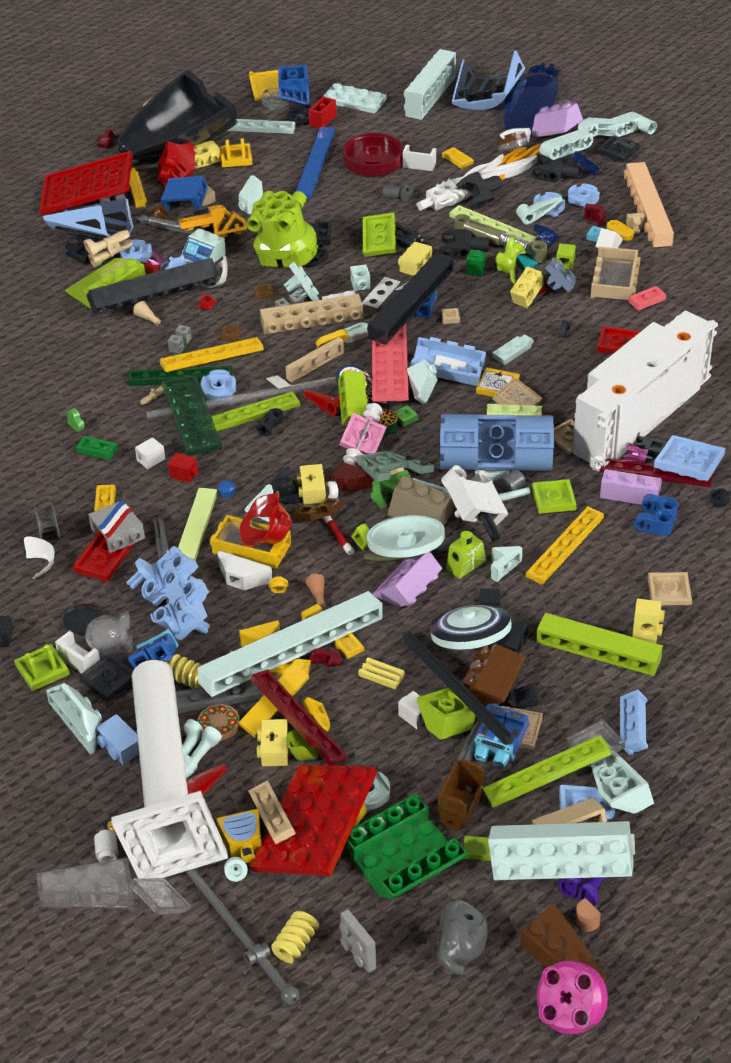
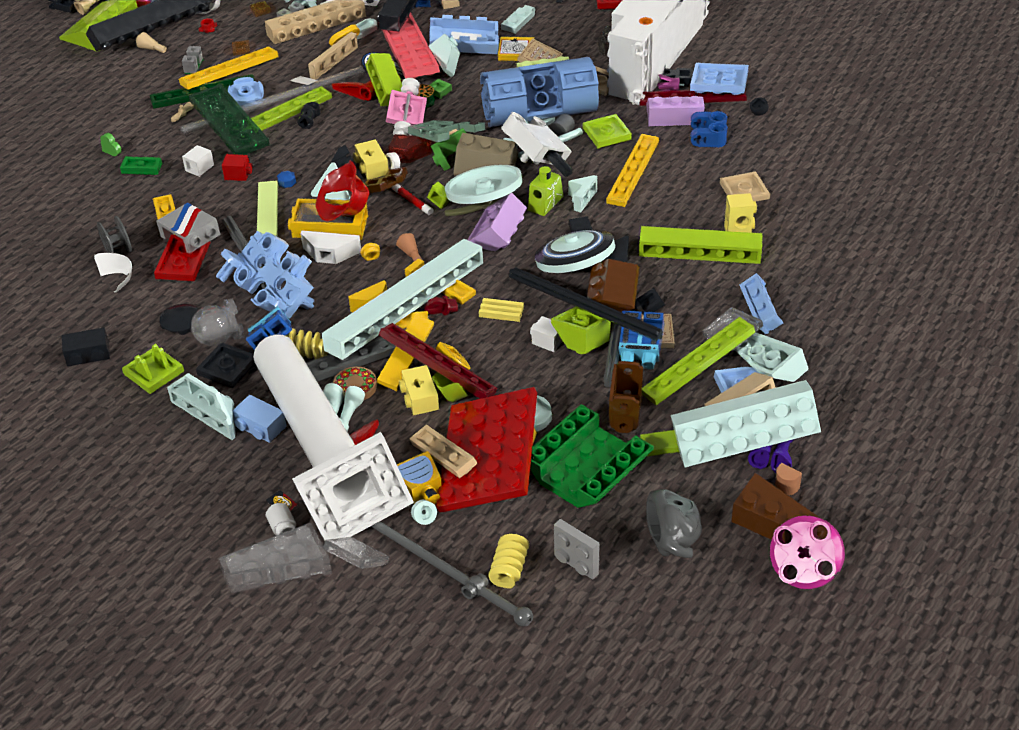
camera: 15 degrees left, 0 degrees up
(74, 654) = (184, 352): white panel -> none

